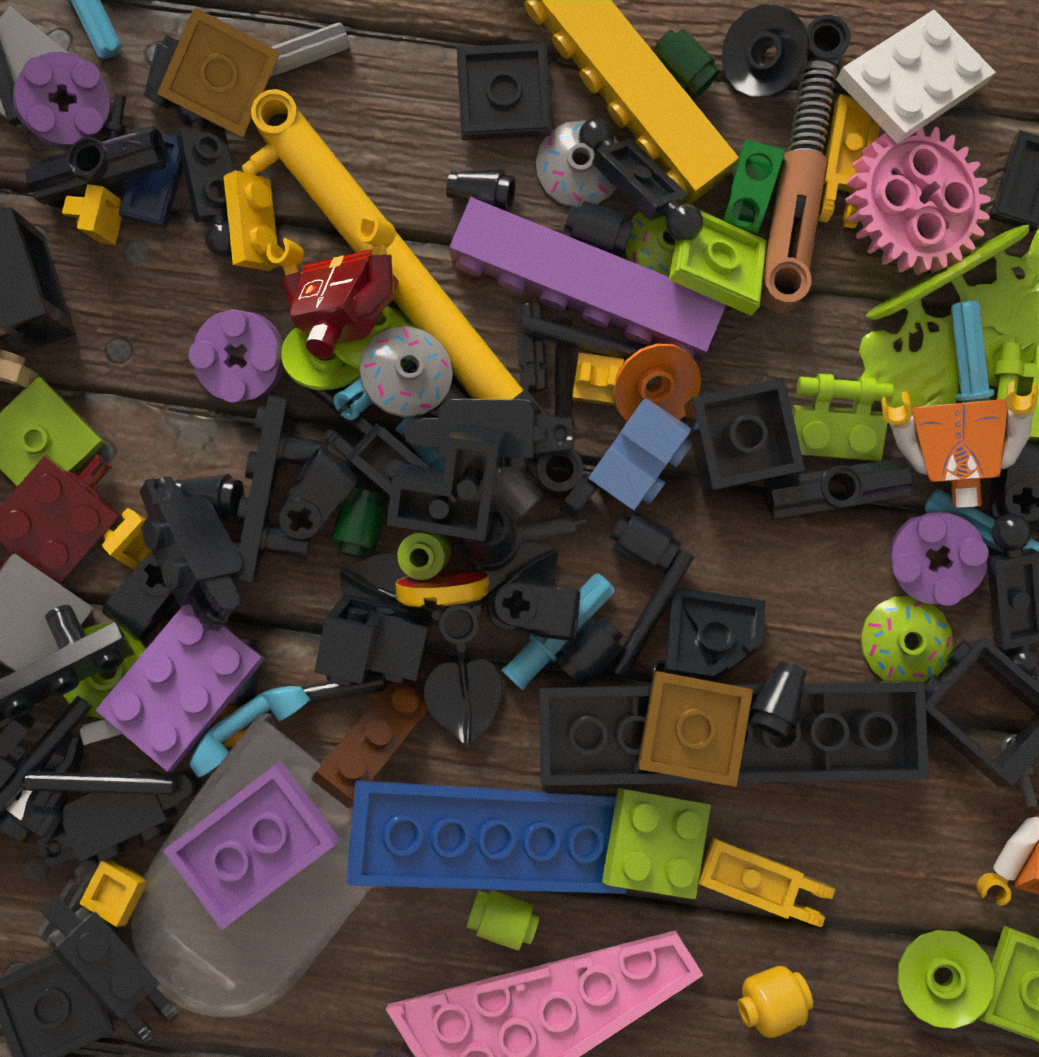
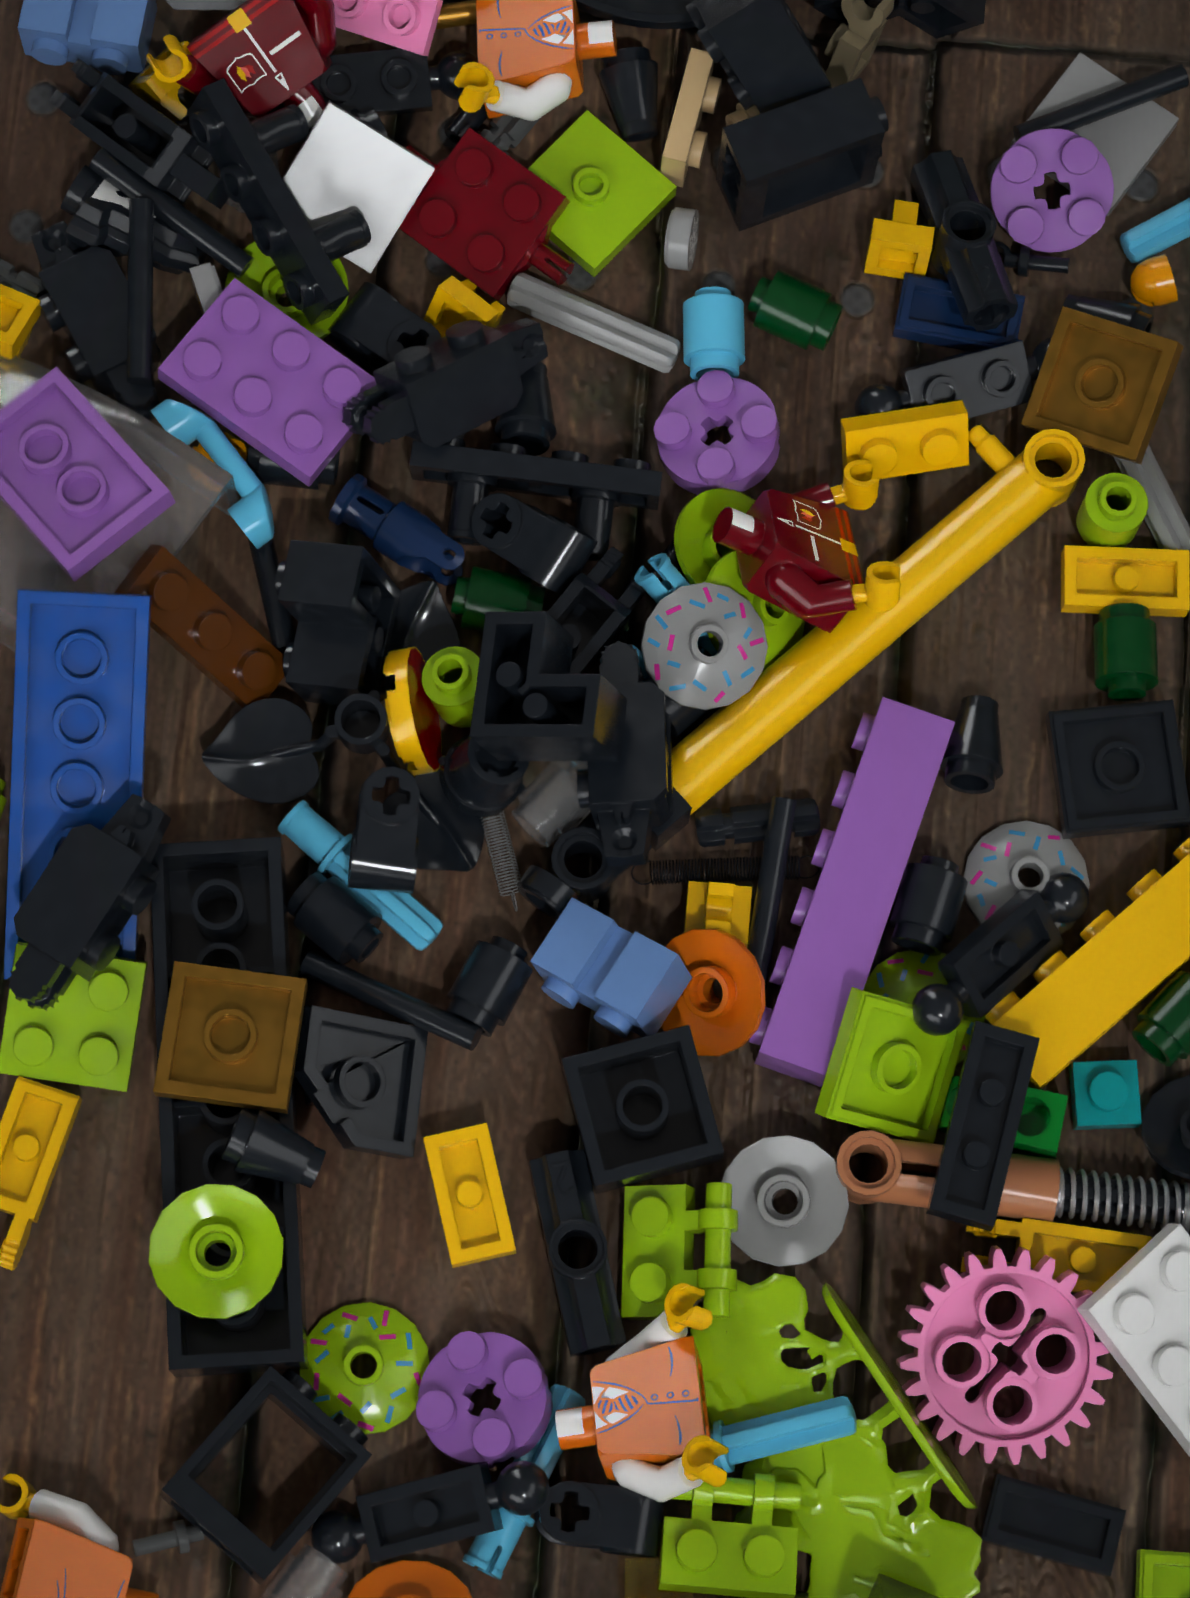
camera: 80 degrees right, 10 degrees down
(81, 374) = (681, 238): none -> light grey tile
(137, 34) = (1154, 282): none -> light orange hinge
(142, 444) = (593, 322): none -> light grey axle
(144, 294) = (795, 311): none -> dark green brick
(158, 354) = (713, 332): none -> medium azure brick
(299, 593) = (398, 531): none -> dark blue piece
(315, 76) = (1112, 511): none -> lime brick
(365, 74) = (1115, 575): none -> yellow plate
(418, 78) = (1125, 651): none -> dark green brick
(586, 834) = (86, 901): none -> black hinge
(735, 118) = (1105, 1094): none -> teal plate
(771, 196) = (983, 1126): none -> black plate
(793, 562) = (469, 1195): none -> yellow plate
(823, 328) = (786, 1165): none -> light grey dish
(877, 750) = (209, 1217): none -> lime dish

